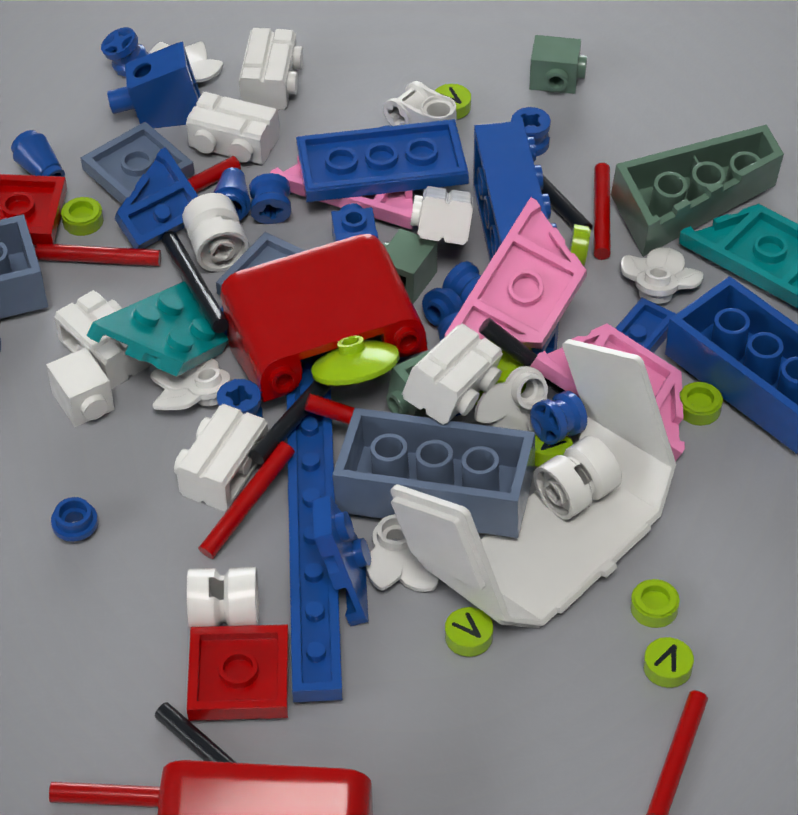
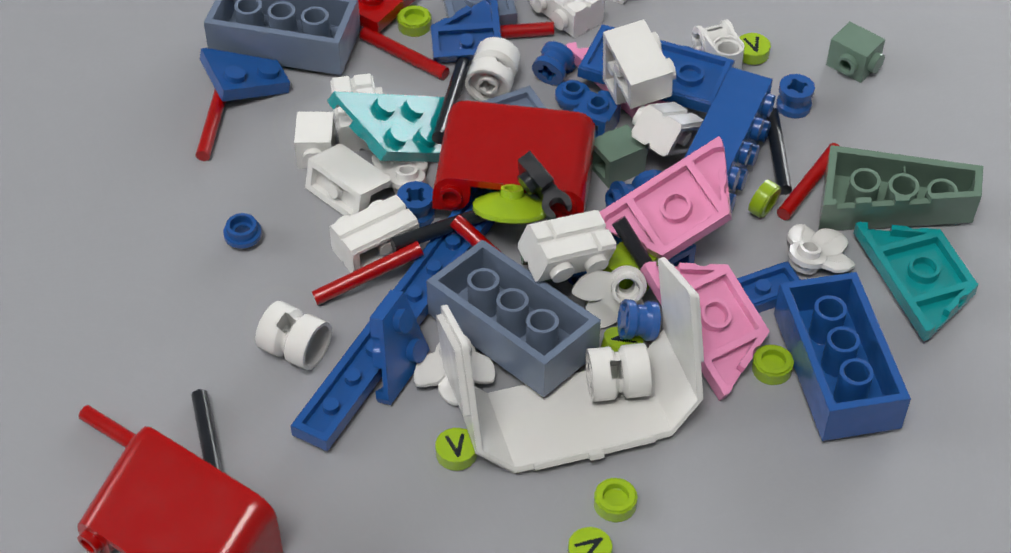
camera: 30 degrees right, 0 degrees up
(148, 416) = (344, 179): none -> white panel
(233, 185) = (530, 47): blue cone -> none
(238, 672) = (266, 393): red plate -> none
(310, 224) = (570, 94): none -> blue plate
(378, 321) = (537, 180): none -> black plate
(385, 163) = (635, 65): none -> white brick

